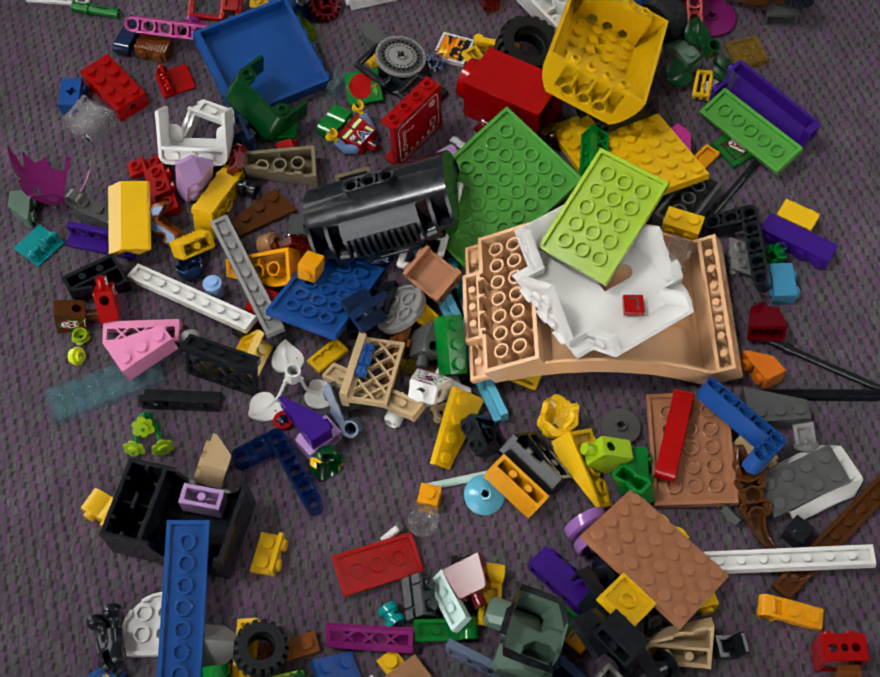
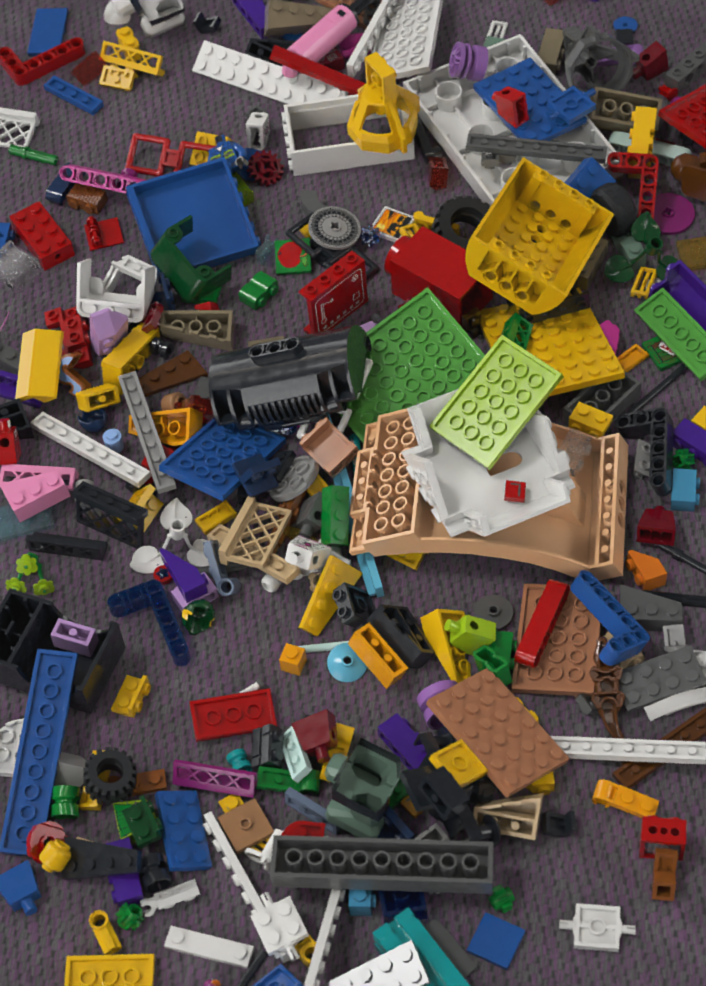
camera: 10 degrees right, 5 degrees down
(213, 463) = (89, 605): tan slope -> none
(311, 266) = (210, 428): light orange brick -> none
(357, 134) = (278, 304): torso -> none
(365, 360) = (249, 522): blue axle -> none
(421, 515) = (279, 676): clear hair -> none
(559, 412) = (431, 591): yellow hair -> none
(797, 532) = (647, 726): black brick -> none

